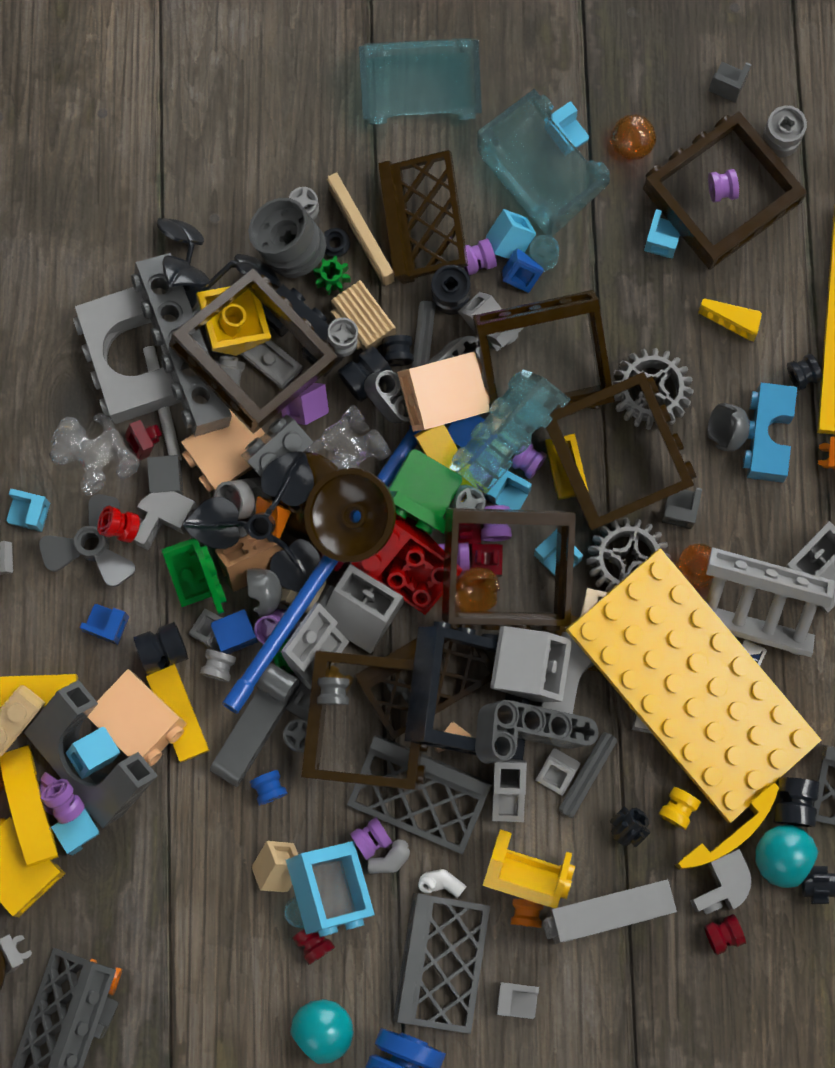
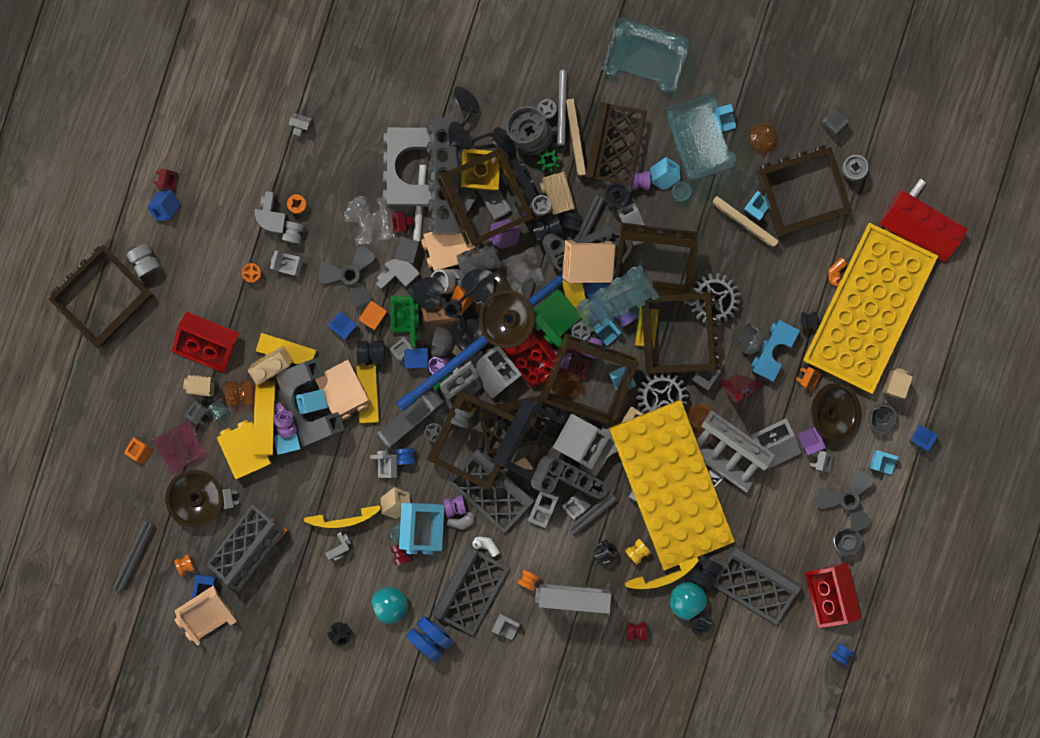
camera: 20 degrees right, 10 degrees up
(28, 510) = (318, 241): medium azure panel -> none
(115, 523) = (371, 272): red wheel -> none
(146, 590) = (373, 315): none -> orange panel
(212, 975) = (337, 552): none -> light grey bracket
(218, 665) = (400, 374): light grey wheel -> none
(238, 898) = (319, 520): none -> yellow slope
(242, 810) = (386, 464): none -> light grey bracket
(325, 194) = (562, 107): none -> light grey bar
(521, 271) = (663, 198): blue slope -> none
(528, 876) = (536, 559): yellow panel -> none
(654, 262) = (744, 221): none -> tan tile
(723, 185) = (802, 192): medium lavender wheel -> none
(732, 881) = (652, 604): light grey brick -> none
(735, 318) = (783, 276): yellow slope -> none
(738, 503) = (740, 386): none -> dark red wedge
(813, 290) = (834, 272): none -> orange arm

